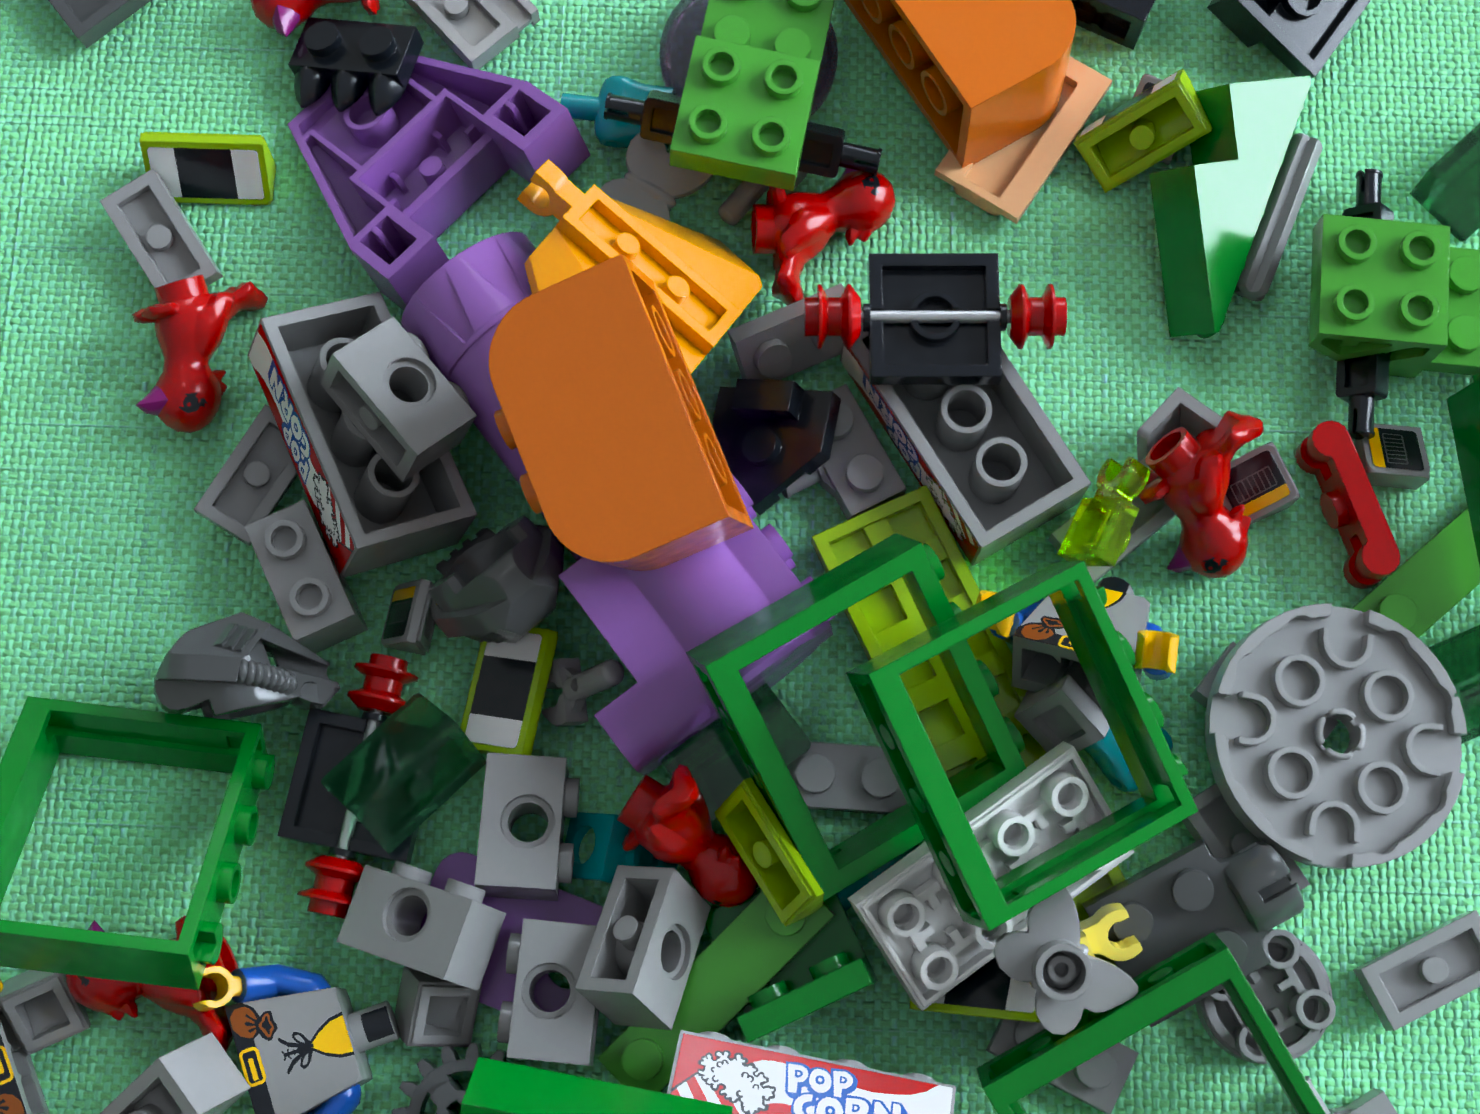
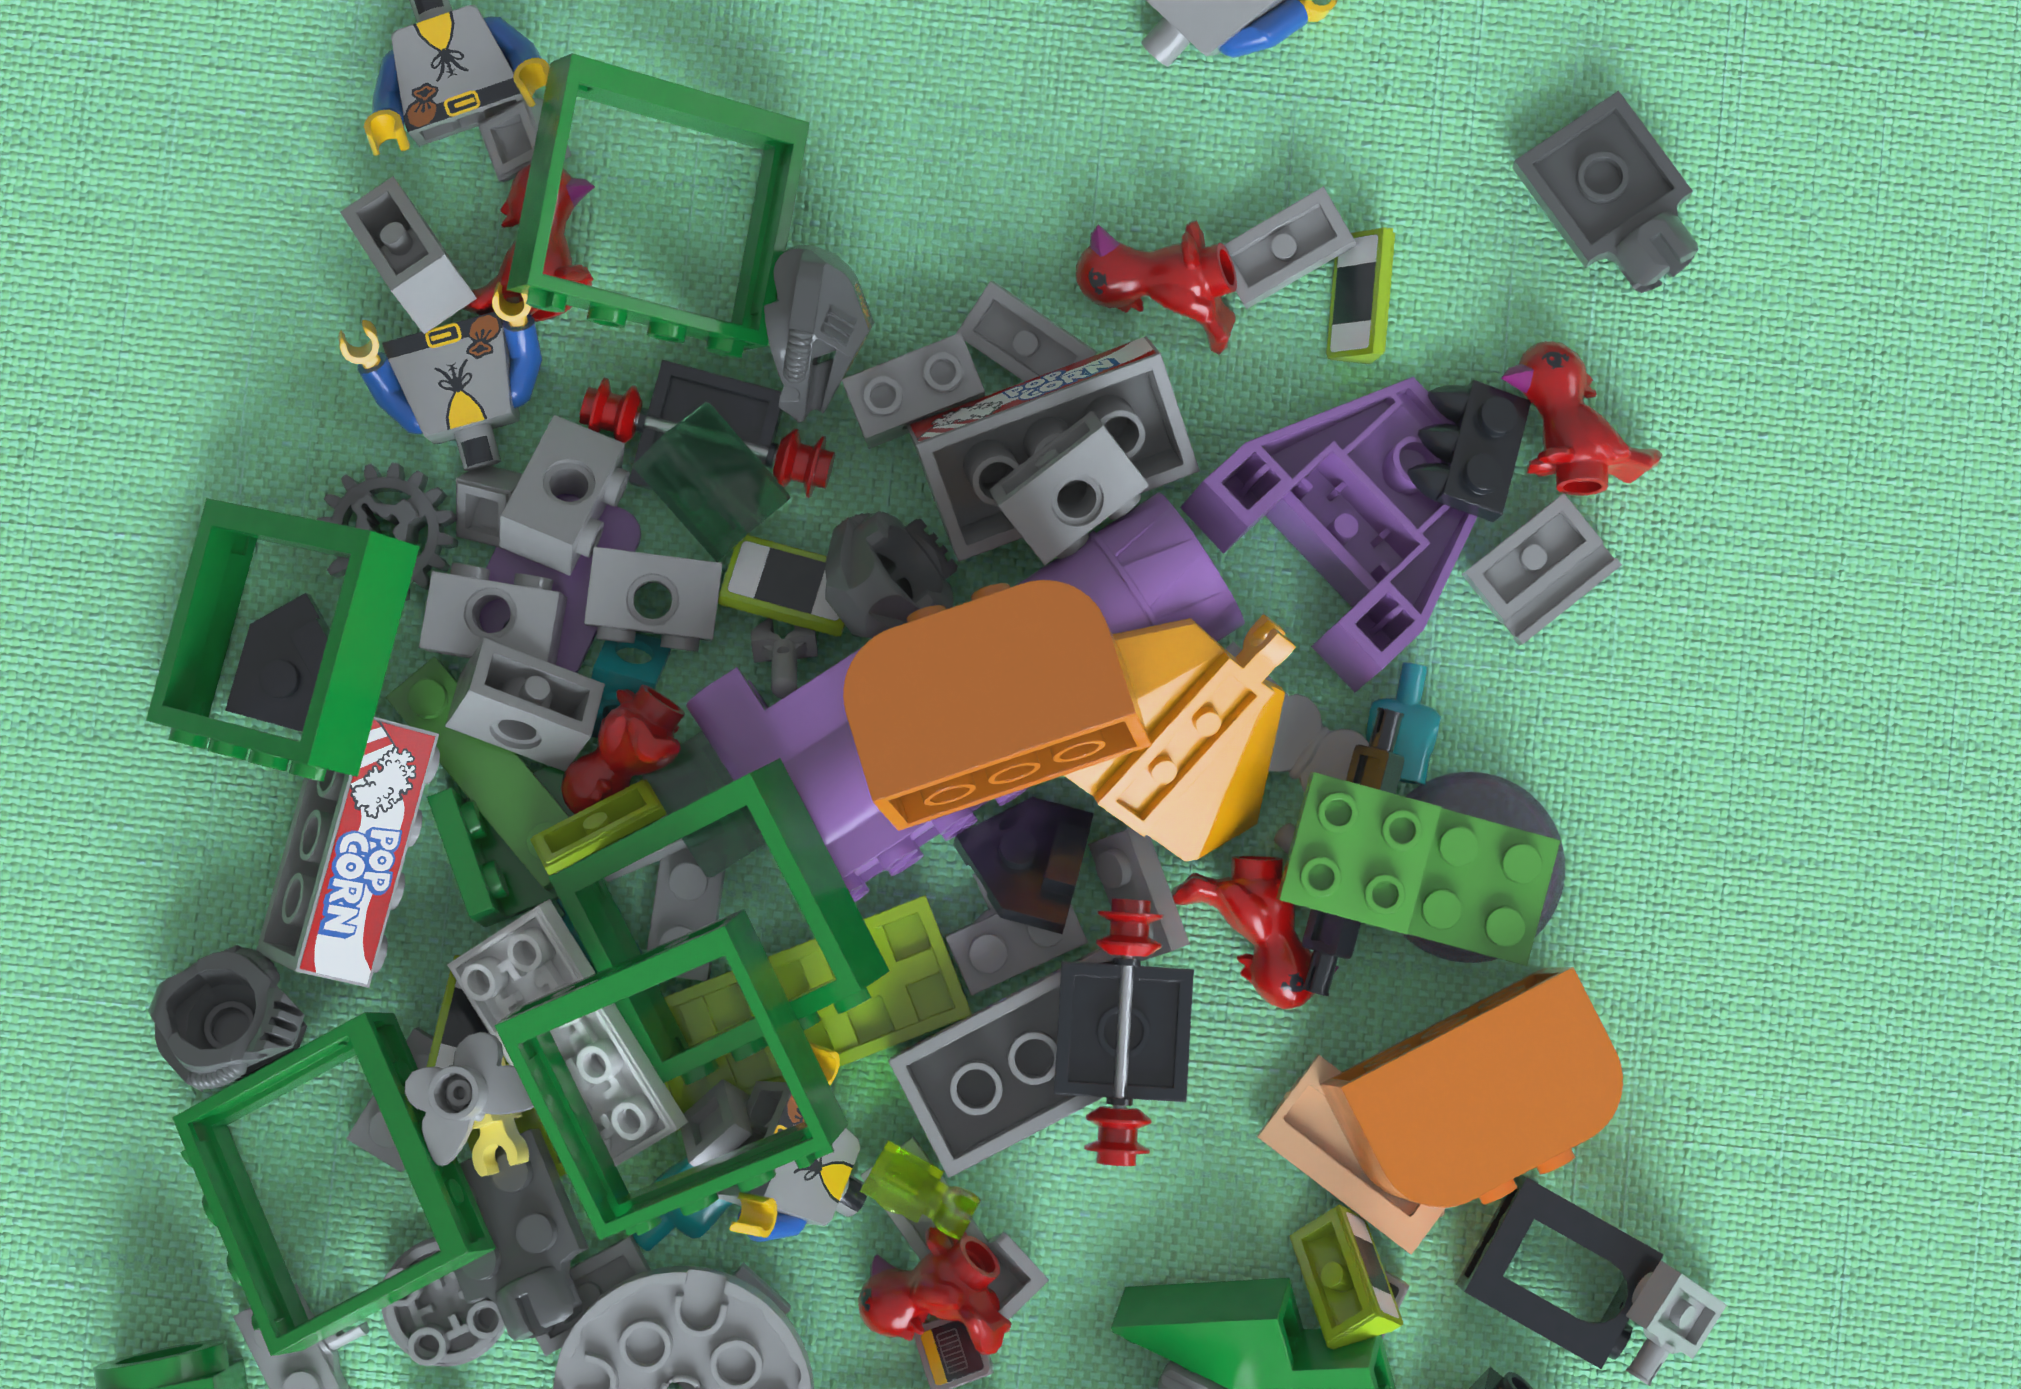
camera: 95 degrees right, 10 degrees up
(409, 618) = (872, 490): light grey slope -> none

